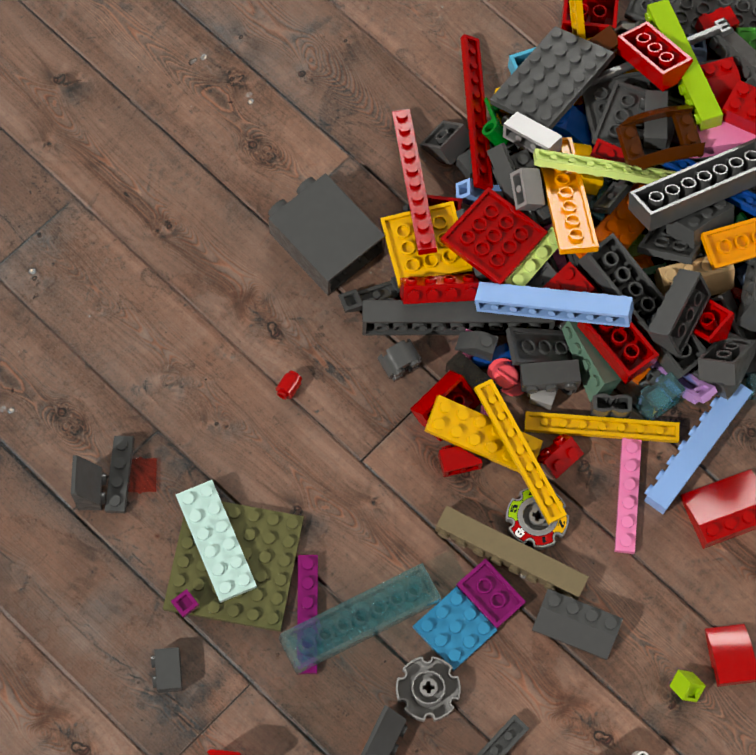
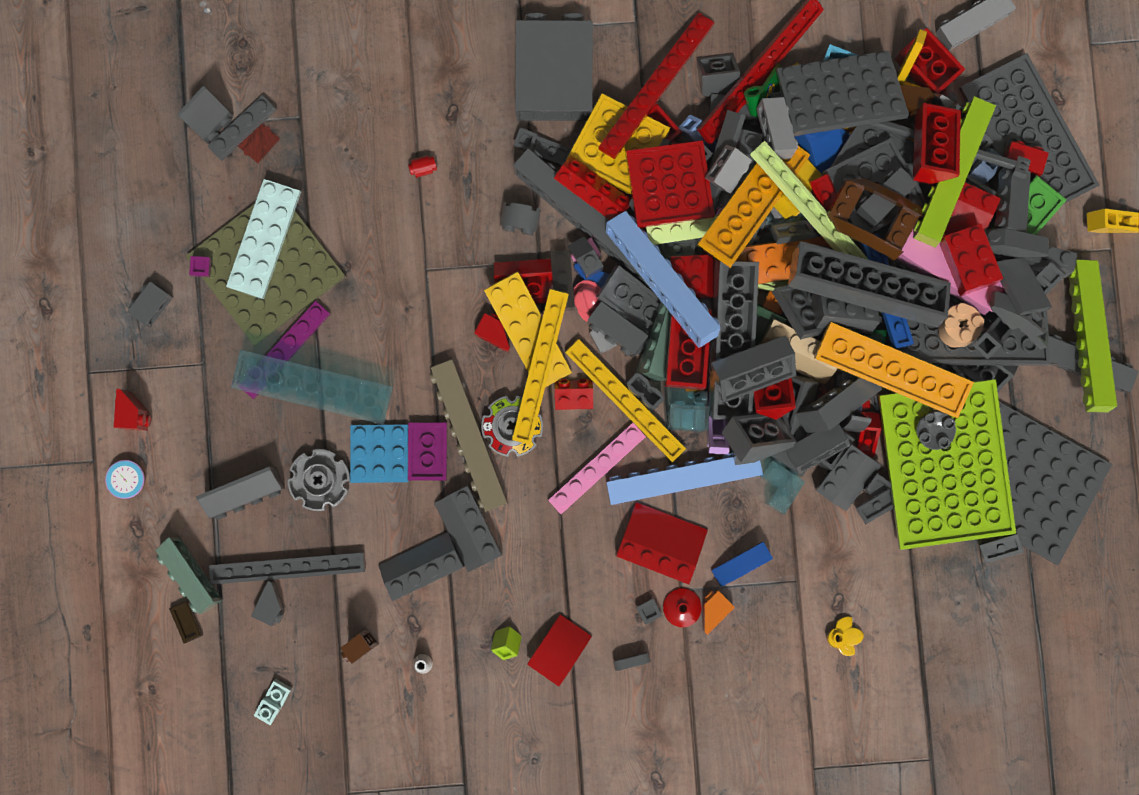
camera: 45 degrees right, 15 degrees up
(568, 685) = (420, 566): none -> dark grey slope

